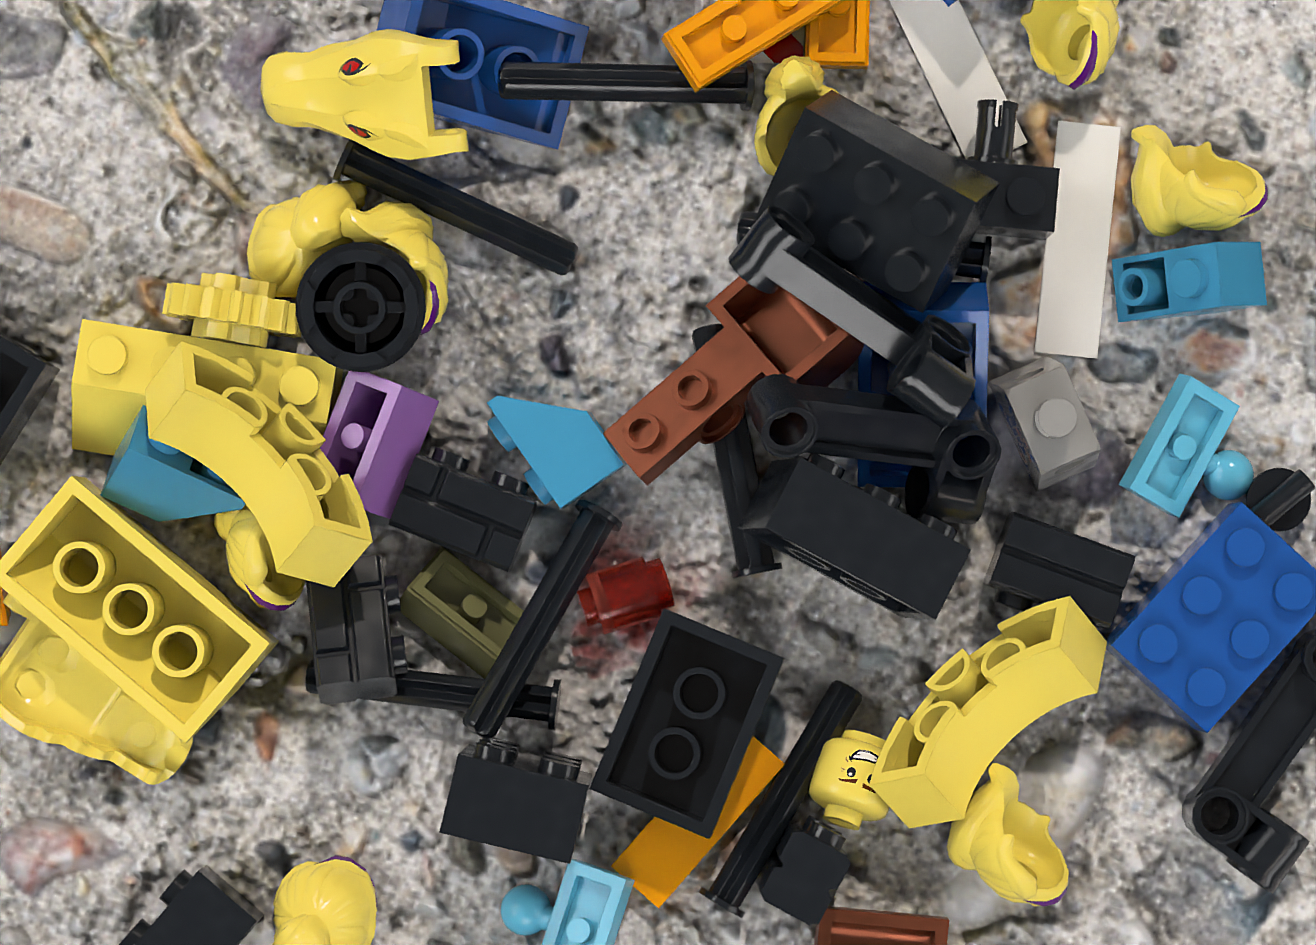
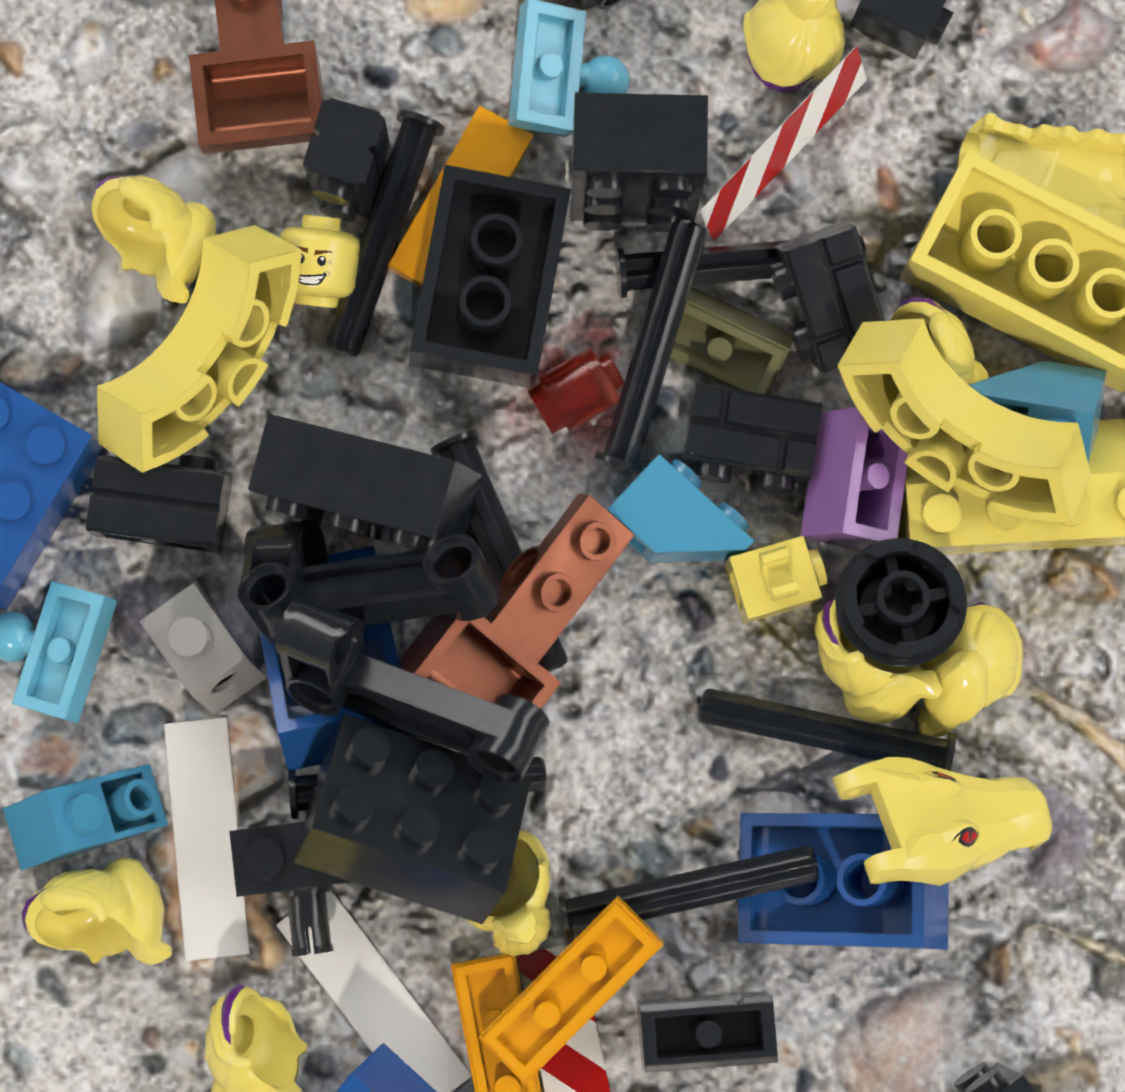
camera: 165 degrees right, 5 degrees down
(232, 309) = (1025, 575): light yellow gear -> none
(361, 800) = (784, 144): none -> sticker
(471, 364) = (776, 579): none -> light yellow brick

